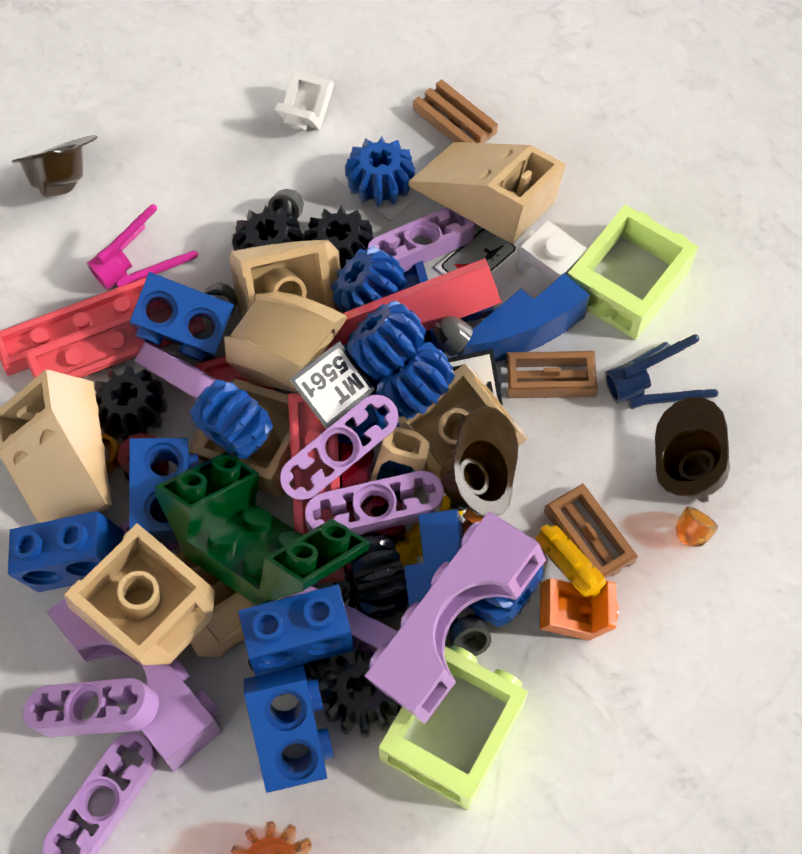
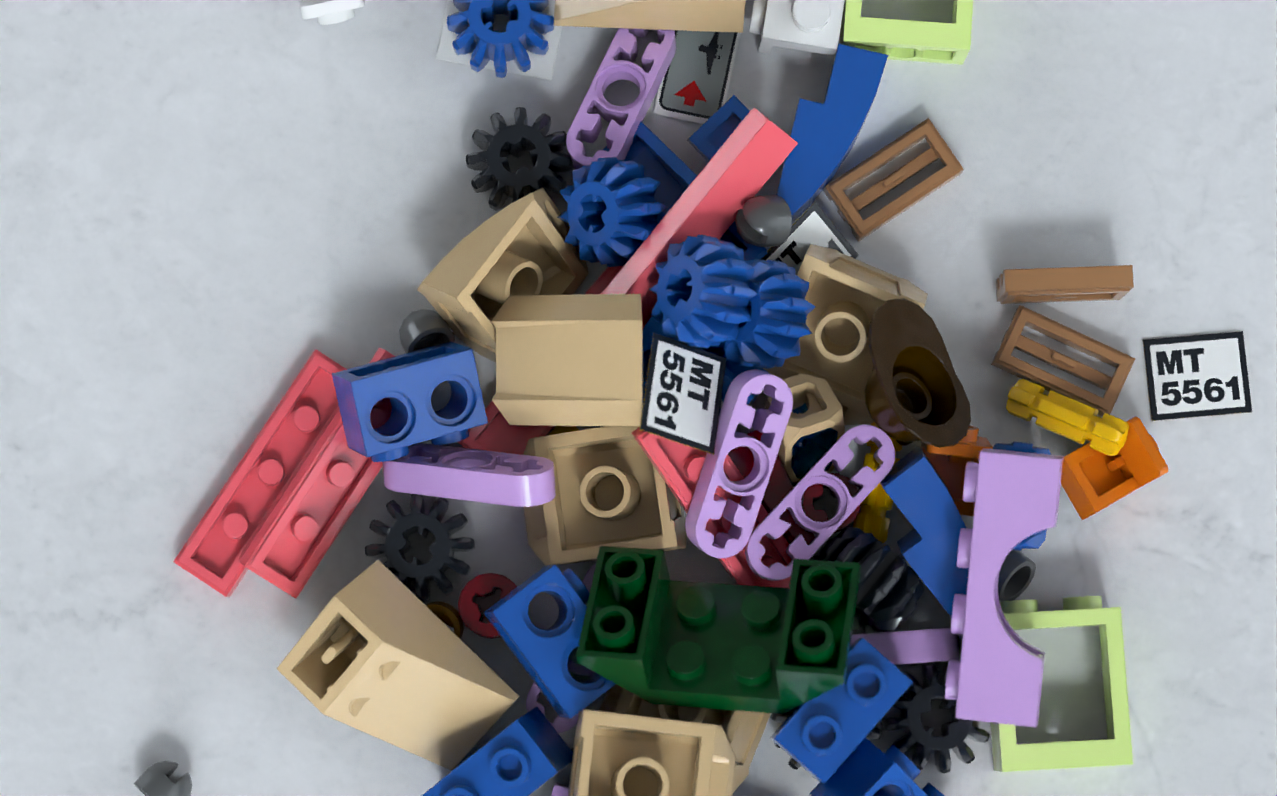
camera: 35 degrees left, 20 degrees up
(57, 168) = (66, 270): dark brown piece -> none
(111, 263) = (251, 373): dark pink plant -> none
(231, 419) = (593, 511): blue gear -> none
(266, 229) = (409, 203): black gear -> none
(282, 199) = (416, 160): dark grey hinge -> none
(619, 484) = (1064, 284): none -> medium nougat tile
(632, 378) = (995, 135): dark blue plant -> none
(674, 596) = (1197, 376): none -> sticker
(692, 449) = (1125, 190): dark brown piece -> none
(695, 527) = (1179, 281): clear orange hinge -> none

